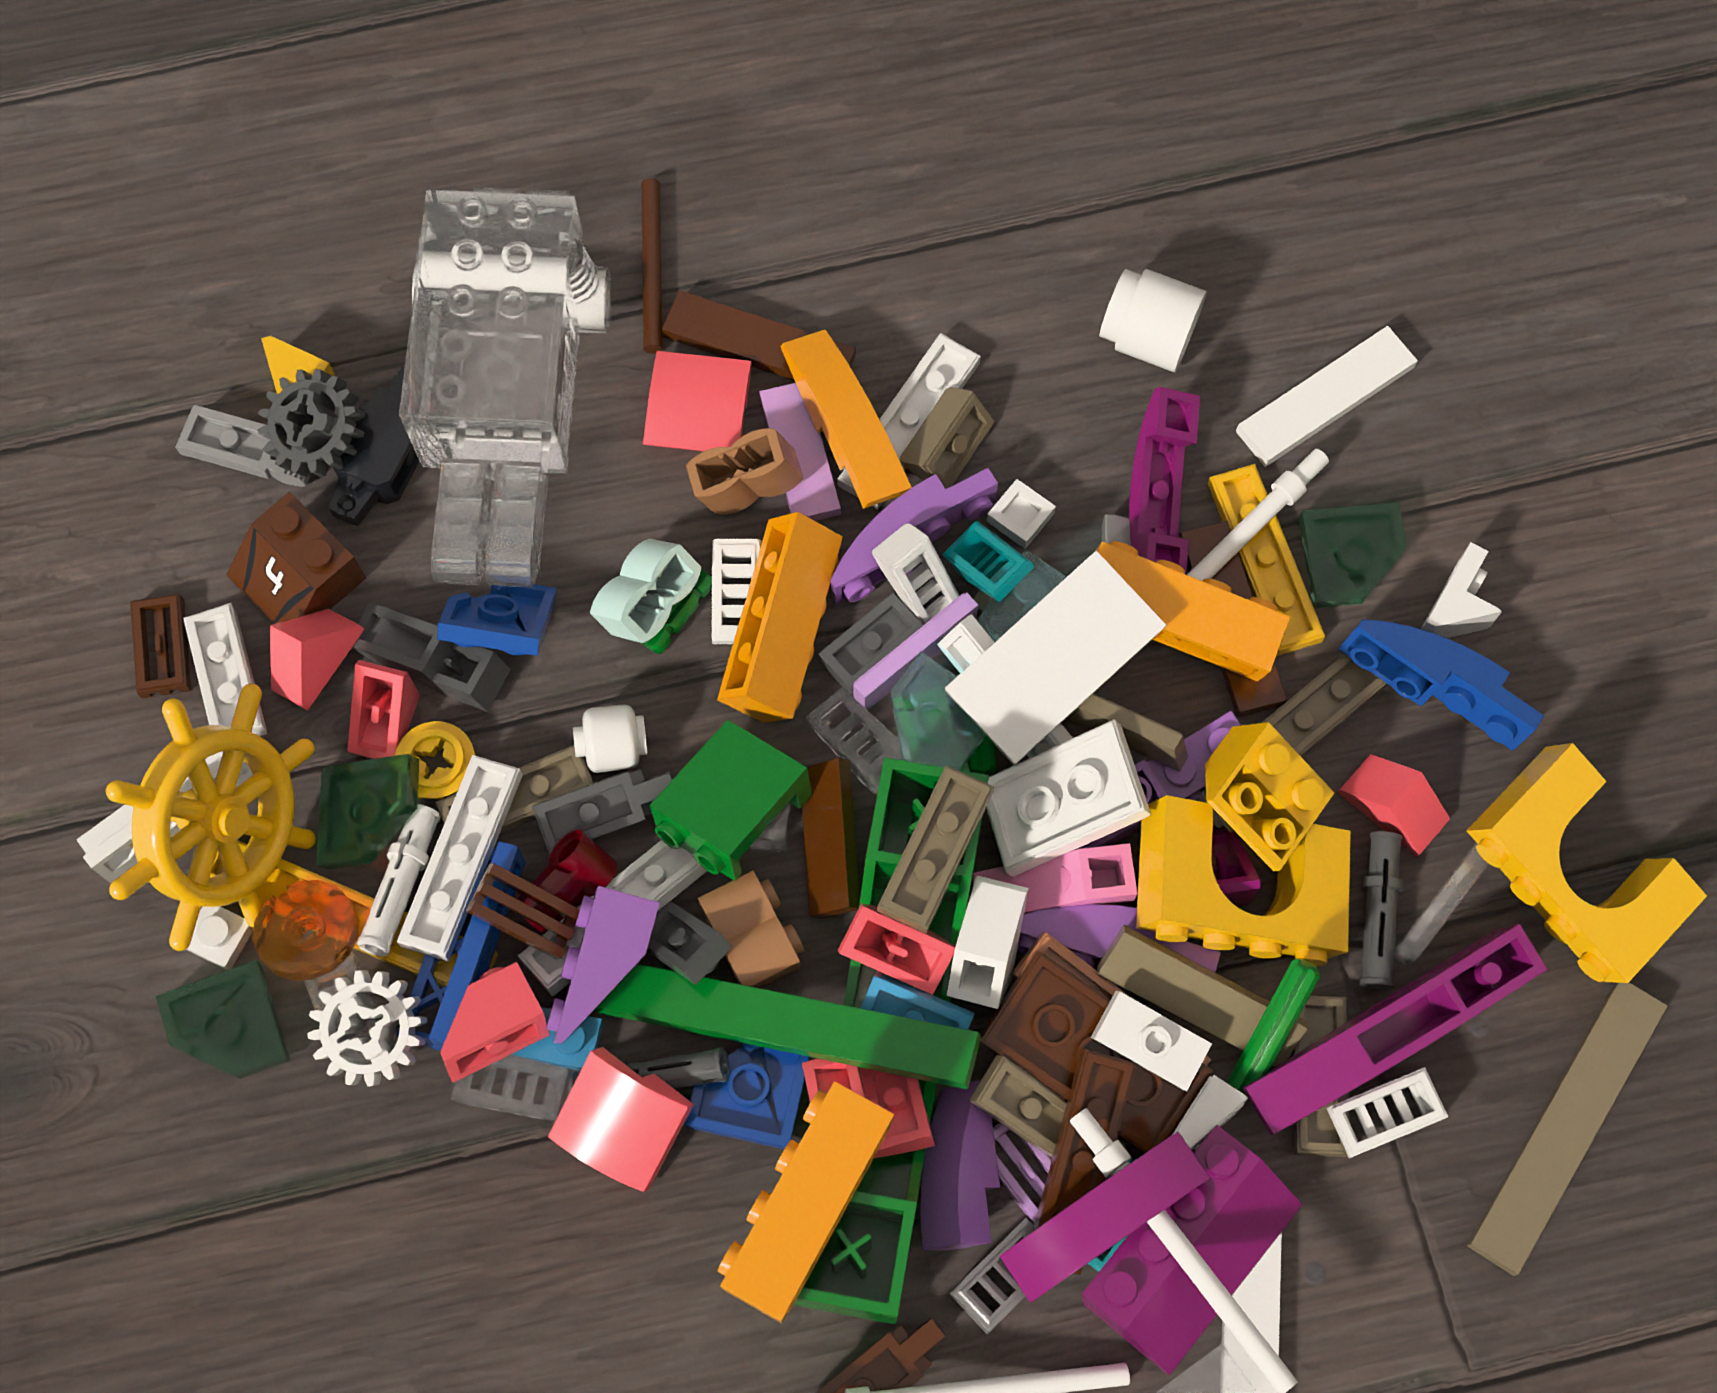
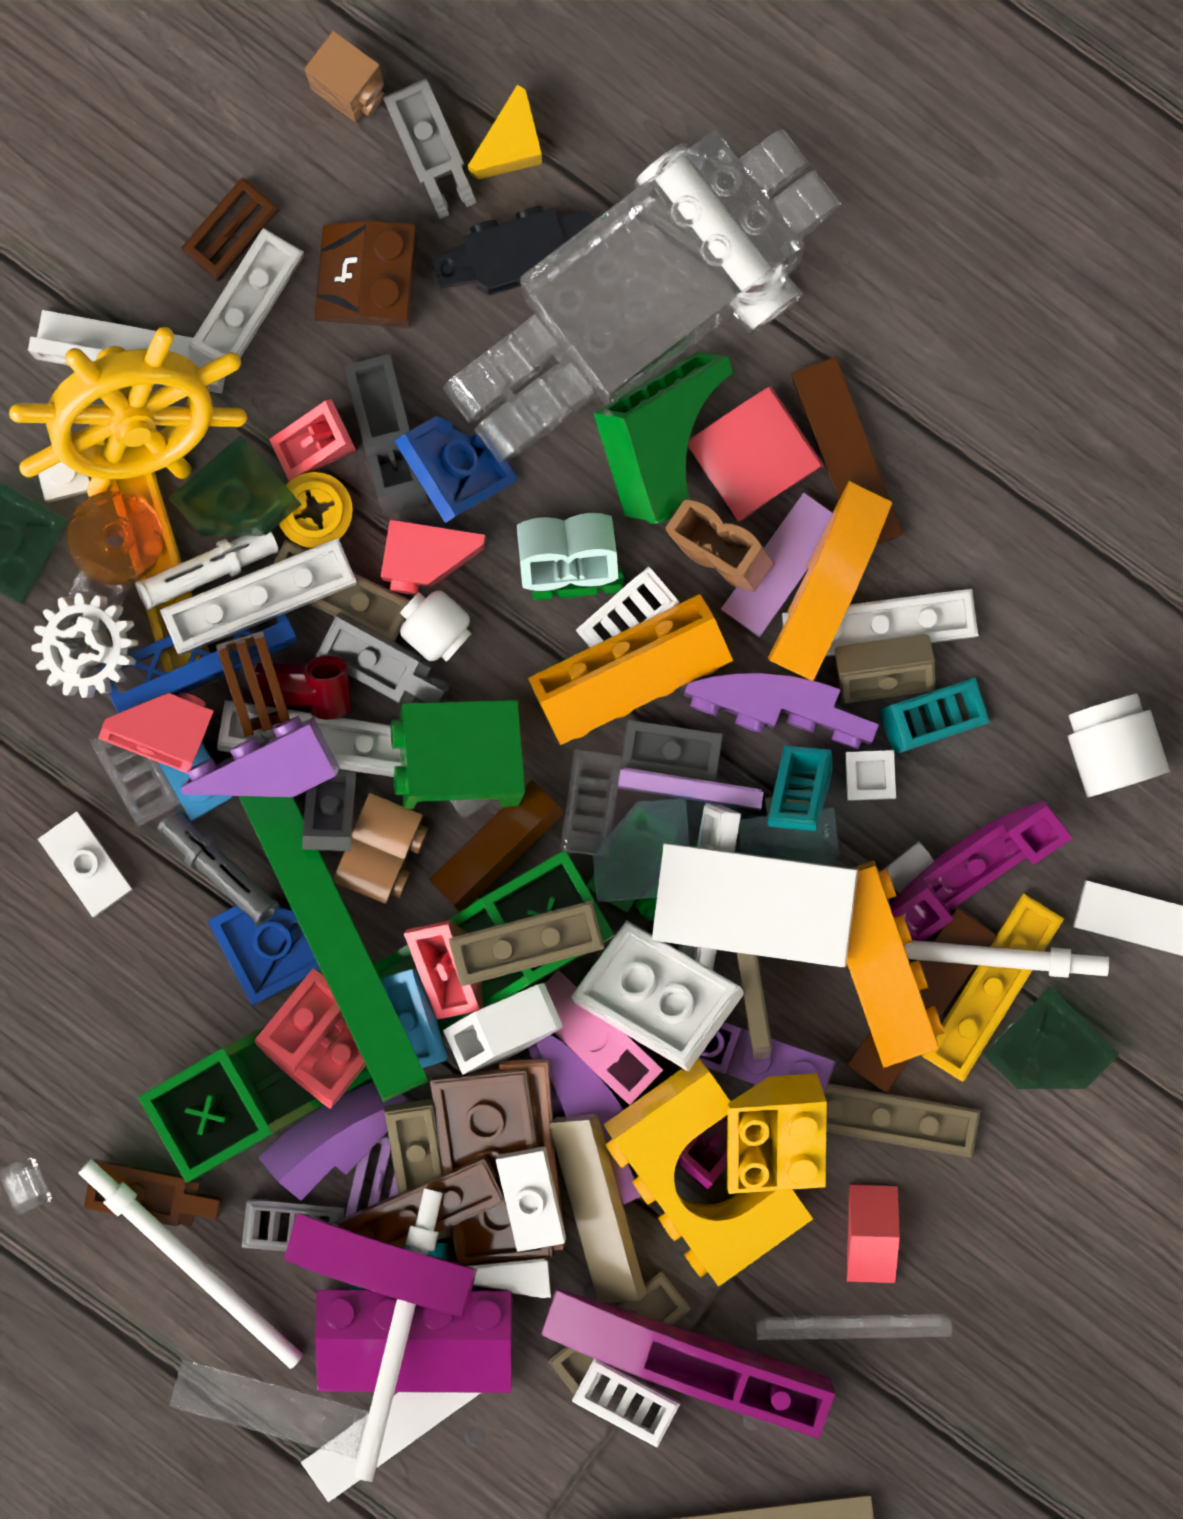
camera: 55 degrees right, 15 degrees up
(131, 454) = (346, 78): none -> medium nougat piece
(307, 401) = (459, 188): dark grey gear -> none
(308, 653) = (314, 348): coral slope -> none
(547, 1192) = (85, 864): none -> white plate
(548, 700) = (425, 555): none -> coral slope
(617, 457) = (650, 434): none -> green arch
(620, 1120) = (170, 875): coral slope -> none
(651, 266) = (841, 314): reddish brown bar -> none
(806, 1202) = (206, 1062): light orange brick -> none
(900, 555) = (747, 742): white slope -> none
(1003, 460) = (897, 727): none -> teal slope
(1275, 1023) = (617, 1276): green axle -> none
(1384, 851) = (826, 1252): dark grey pin -> none
(1430, 665) = (995, 1176): blue slope -> none
(1457, 607) = (1063, 1159): white slope -> none
(1523, 839) = (906, 1347): yellow arch -> none

